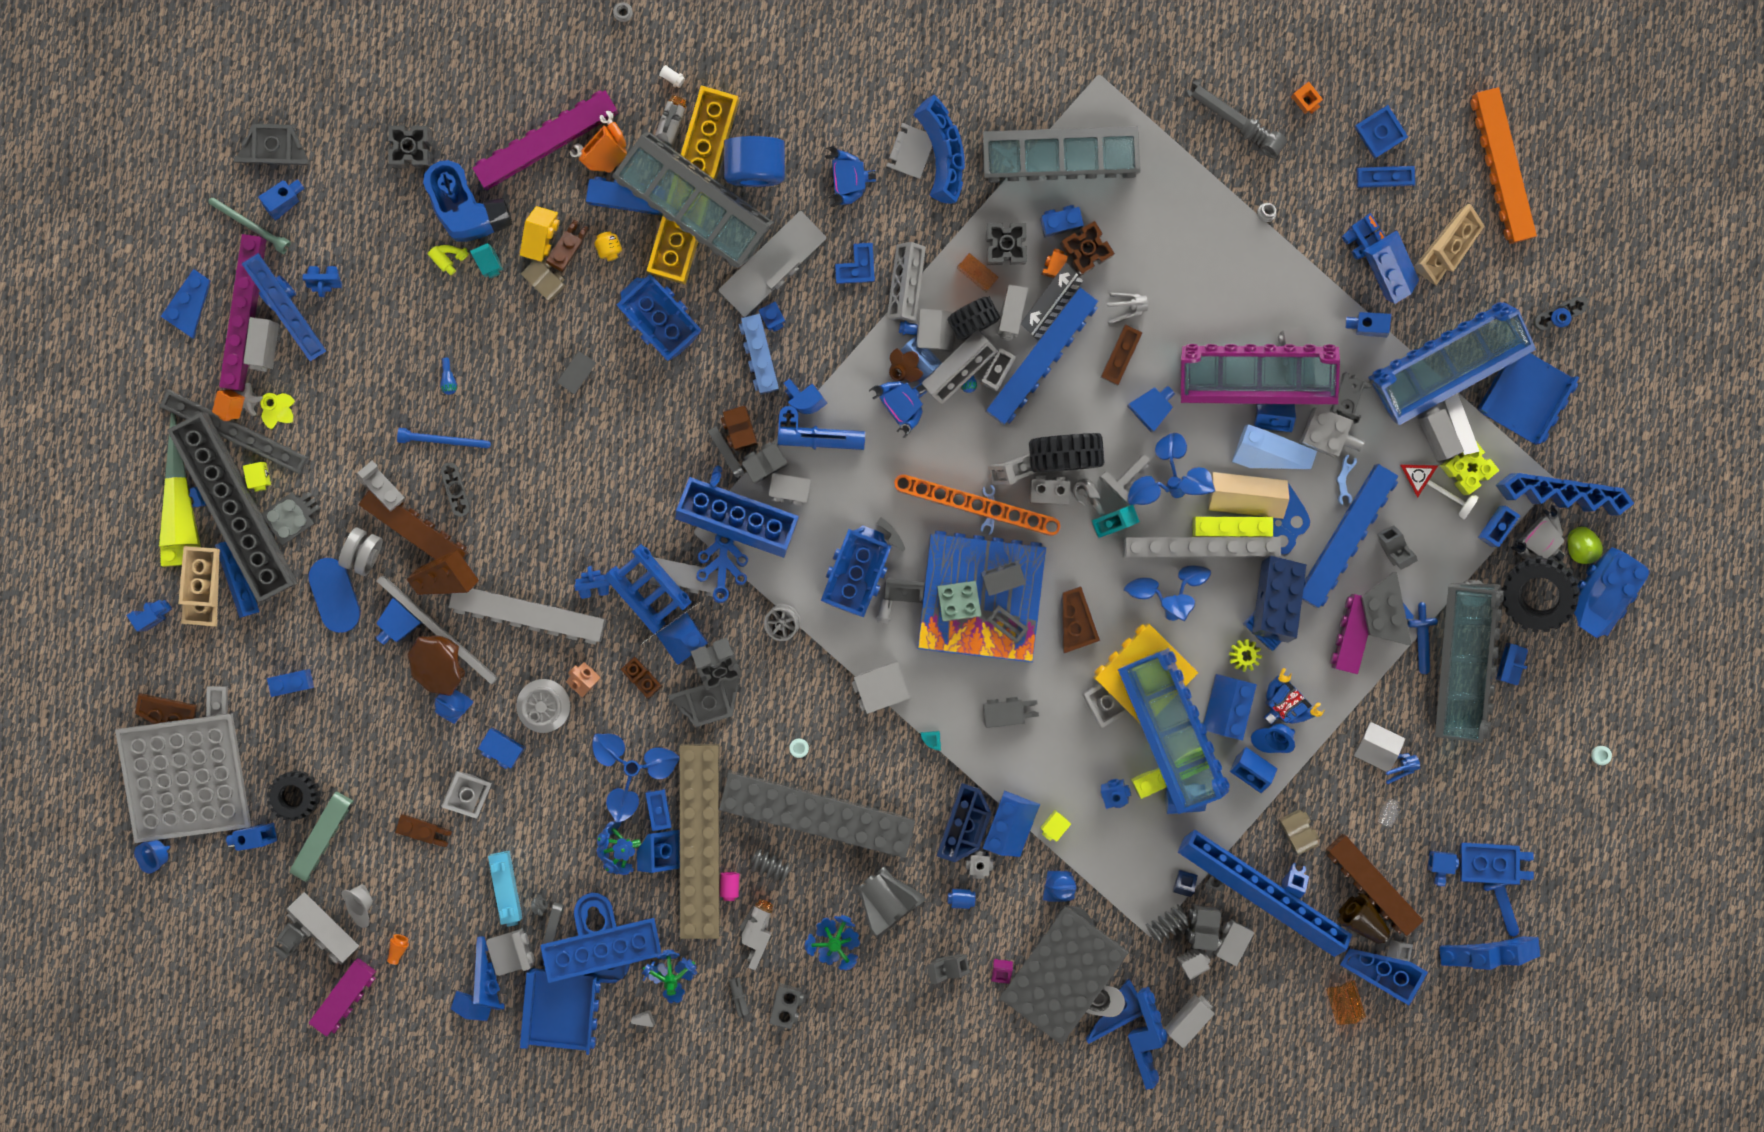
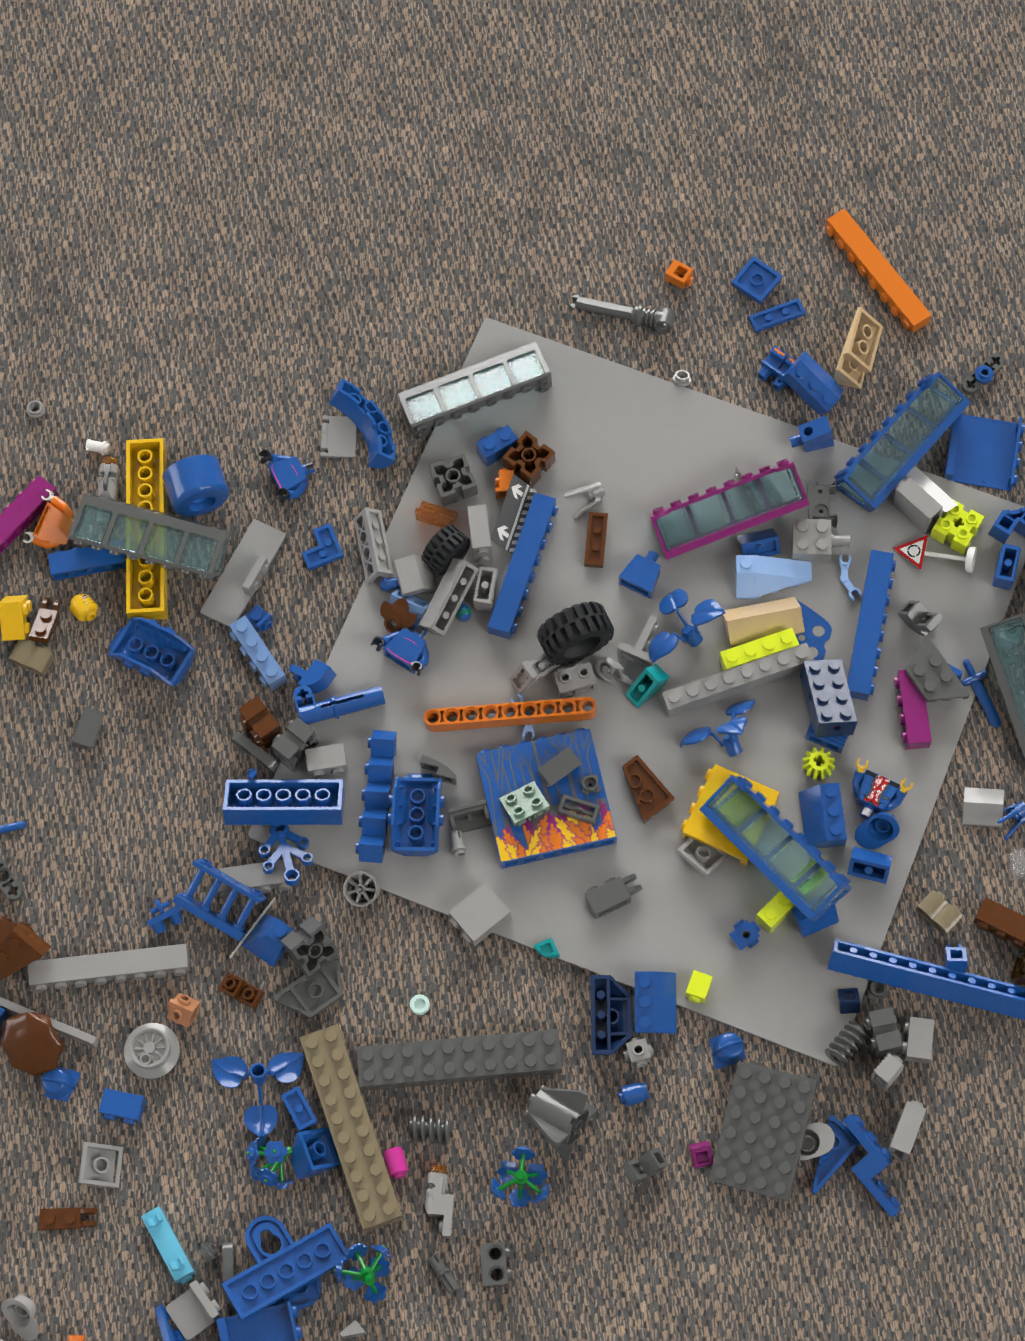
camera: 10 degrees left, 20 degrees down
(825, 540) = (376, 796): none -> blue brick
(1030, 600) = (593, 779): none -> dark grey plate

